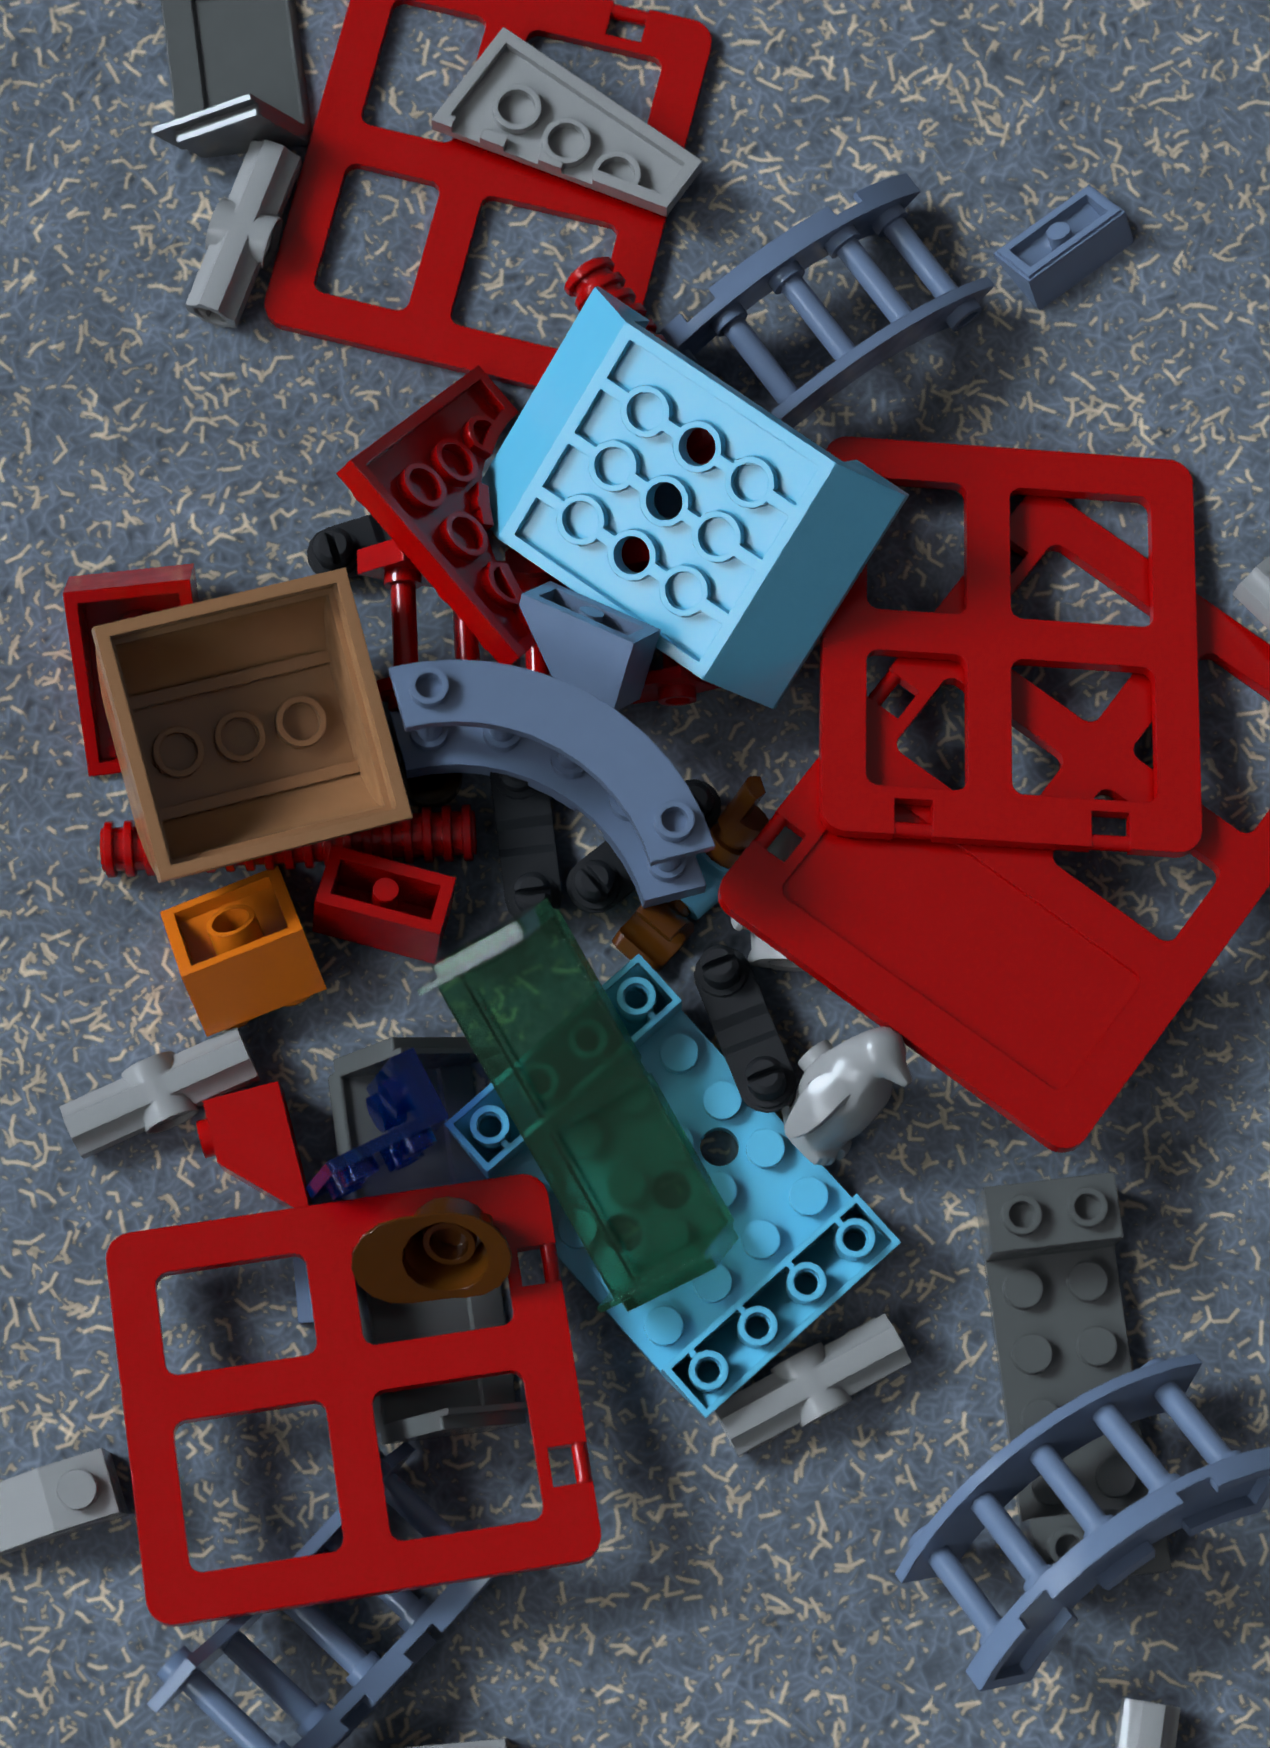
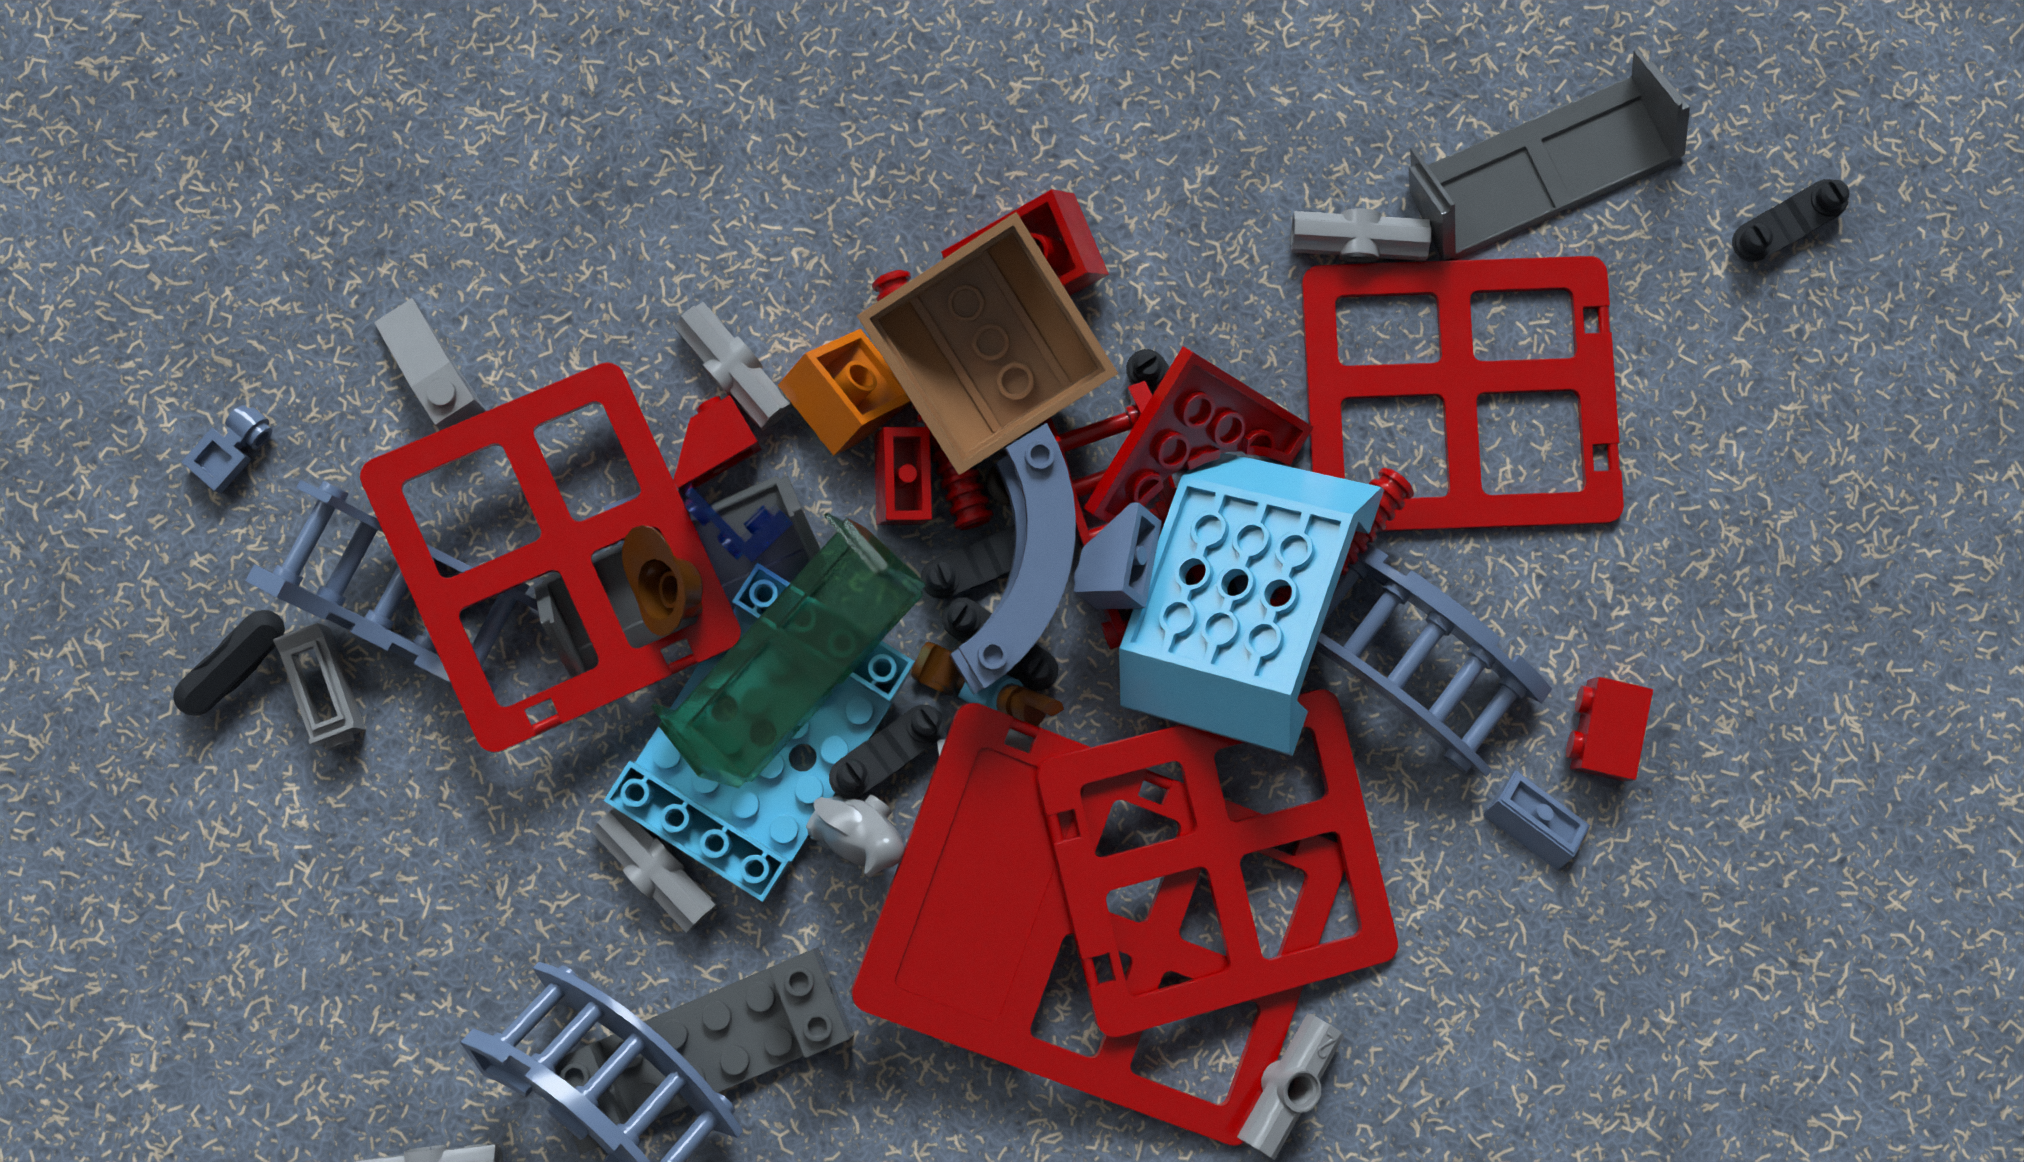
camera: 70 degrees right, 5 degrees up
(556, 122) = (1510, 428): light grey wing -> none
(975, 120) = (1609, 728): none -> red brick

